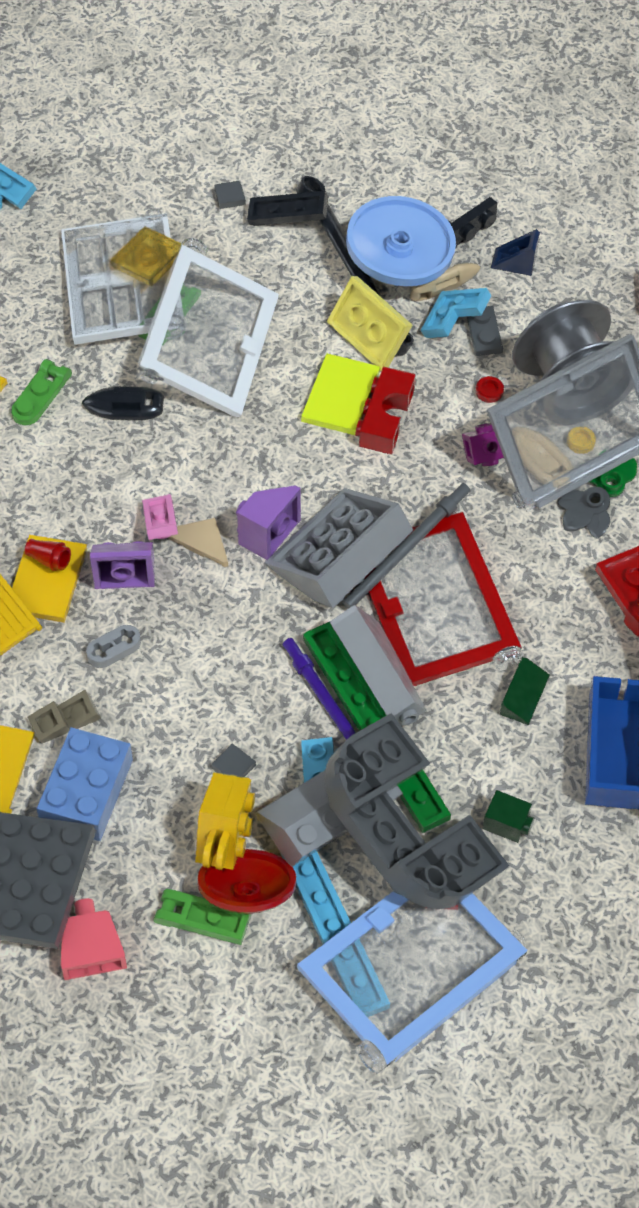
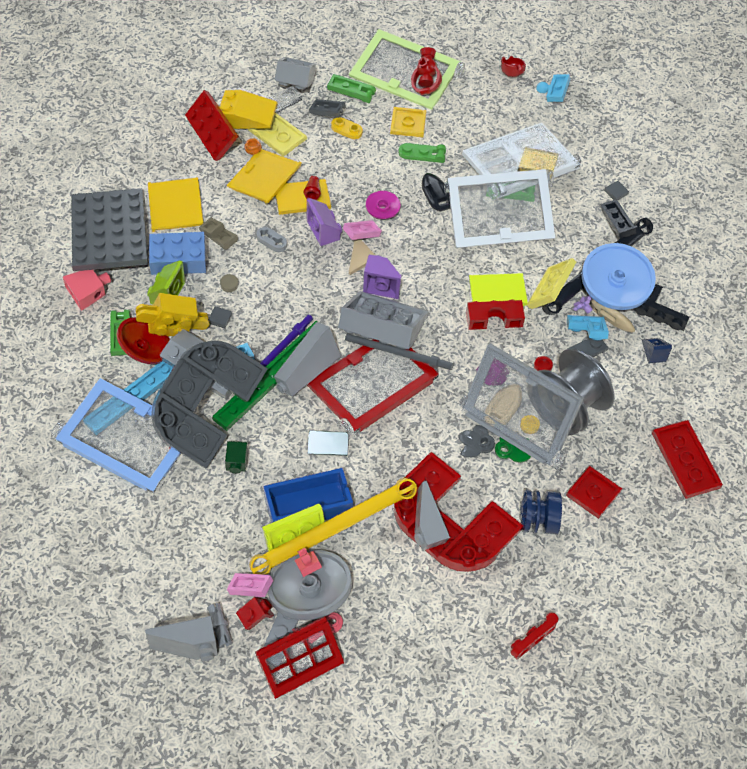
camera: 65 degrees right, 0 degrees up
(117, 466) = (382, 199): none -> dark pink dish
(147, 815) = (168, 281): none -> lime slope
(171, 732) = (229, 283): none -> dark tan tile
(409, 303) = (583, 304): none -> lavender plant

